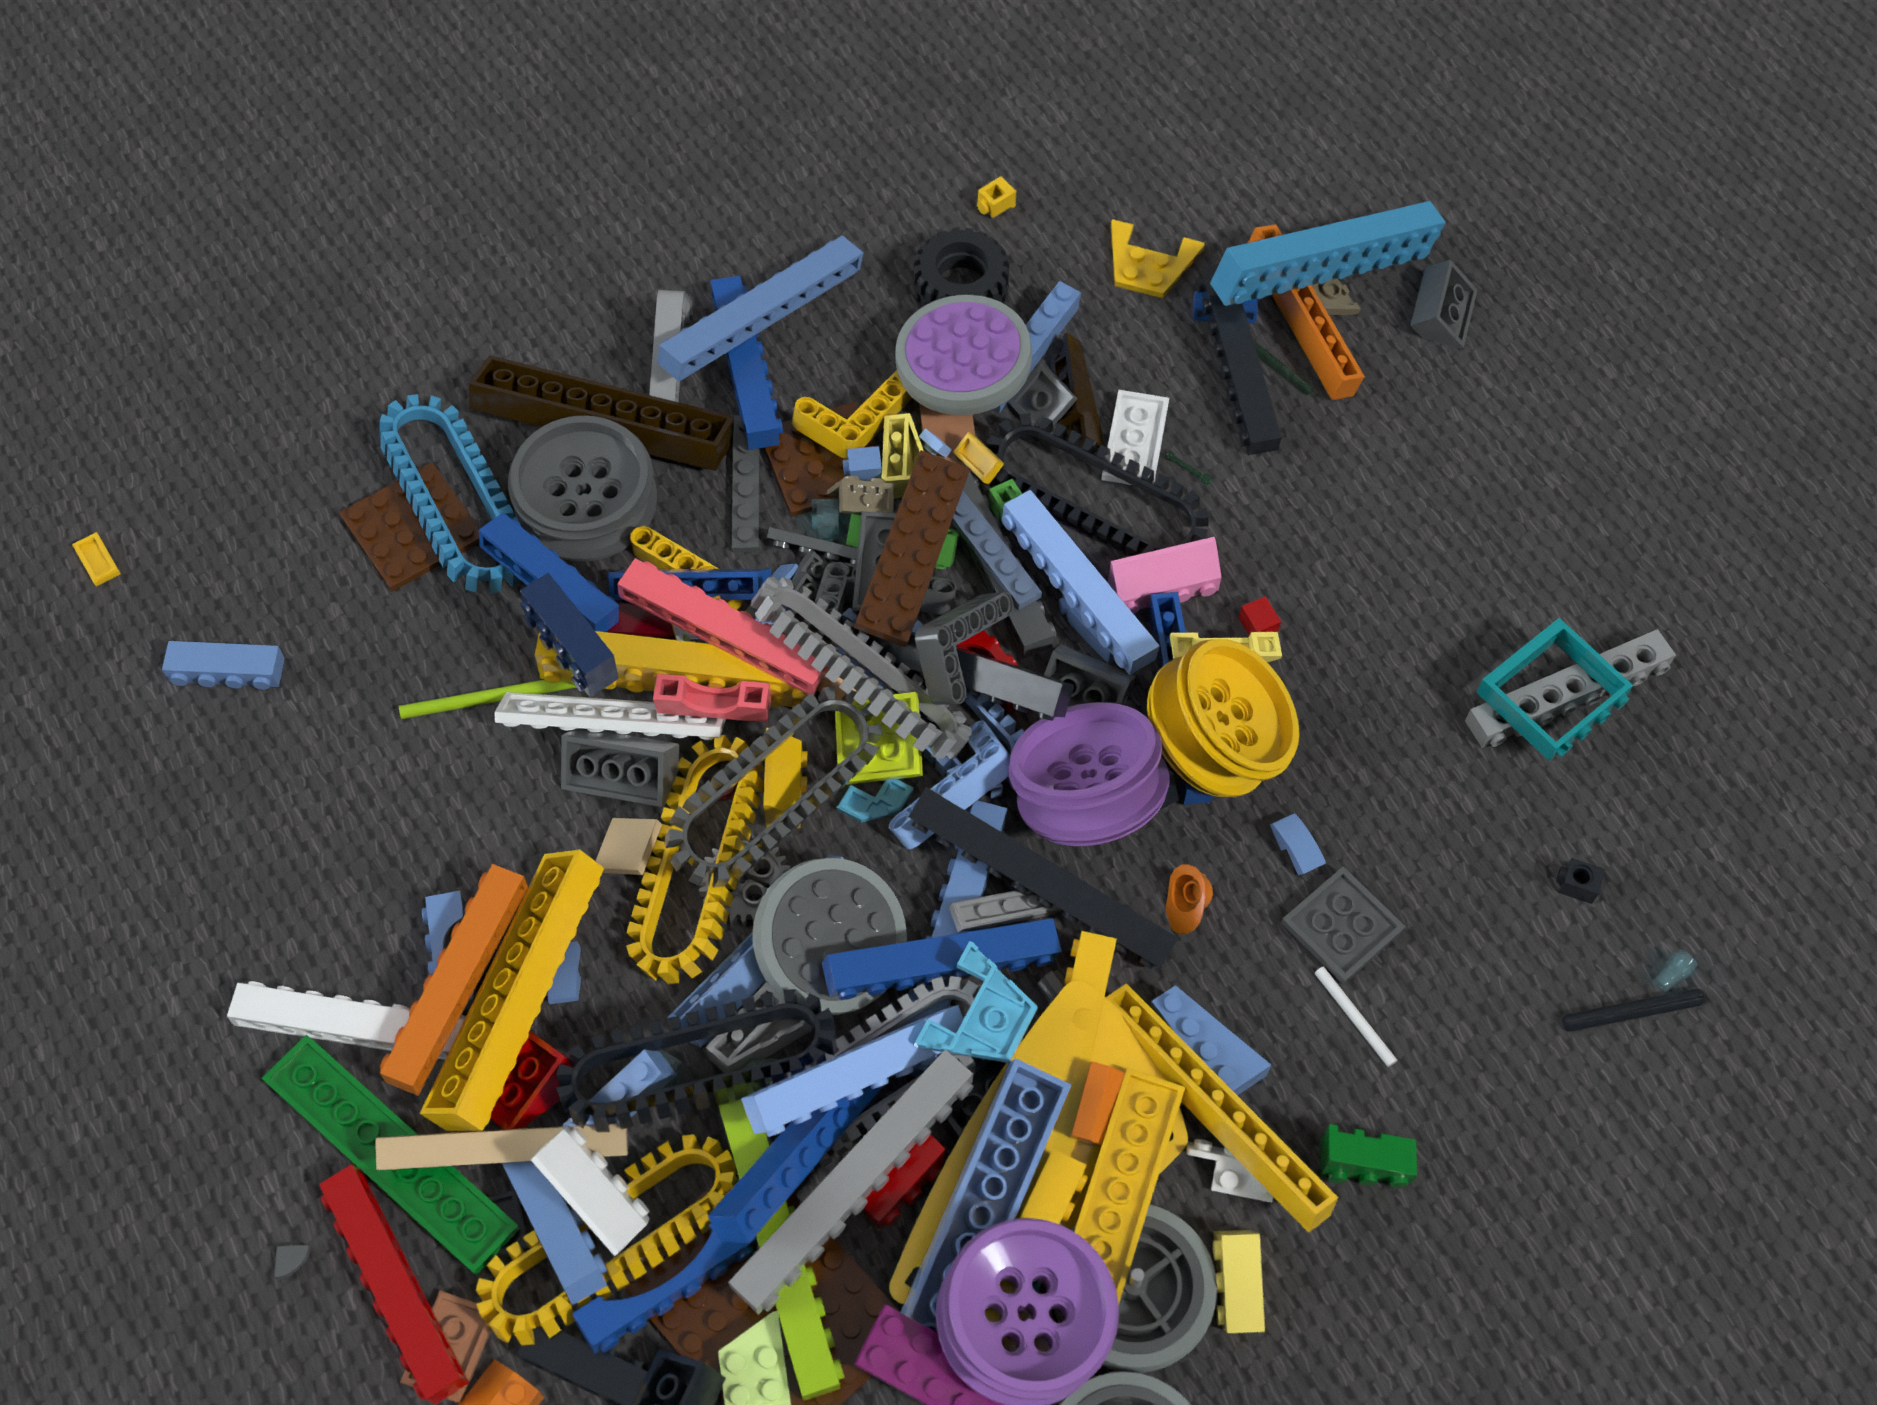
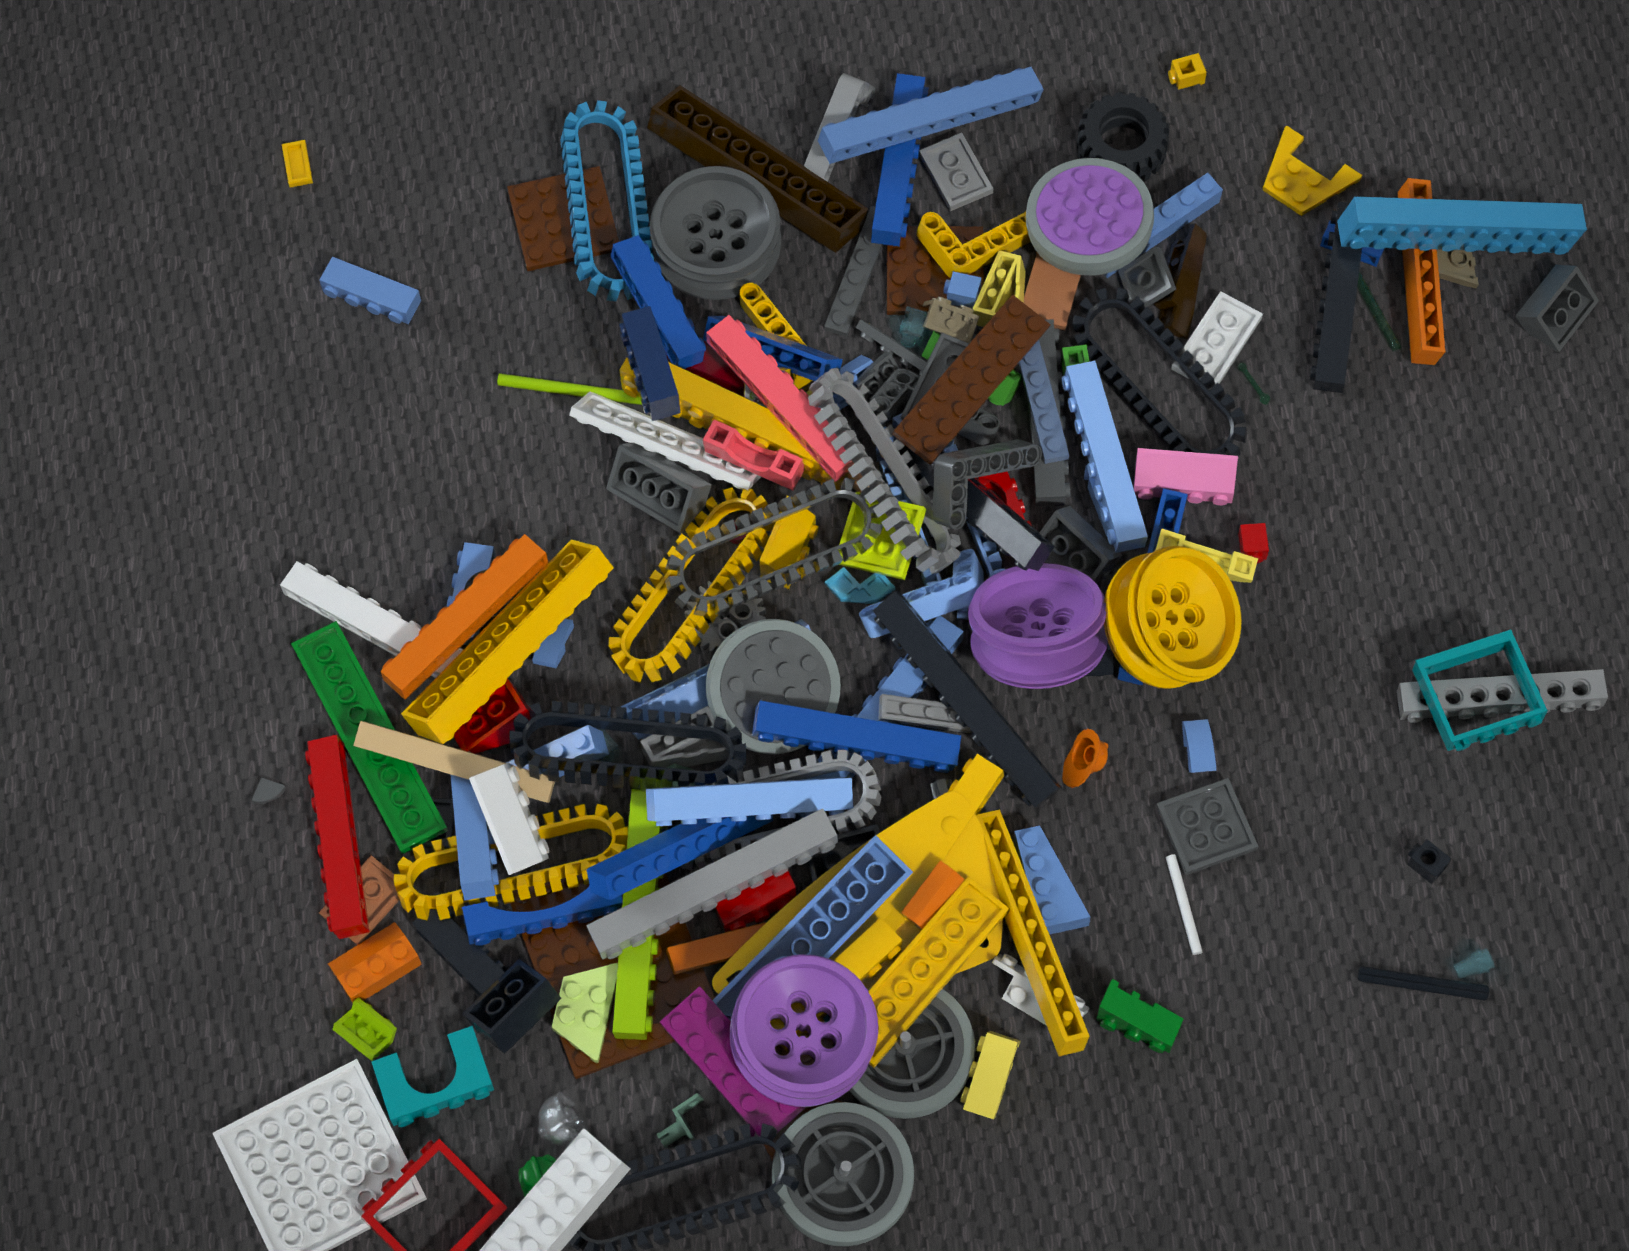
camera: 25 degrees right, 5 degrees up
(628, 845) = (641, 555): tan tile -> none
(806, 357) = (956, 171): none -> light grey plate
(873, 1255) = (709, 950): none -> orange tile
(934, 444) = (1034, 289): light blue plate -> none
(978, 458) = (1066, 315): yellow tile -> none
(992, 1022) = (873, 799): medium azure wing -> none

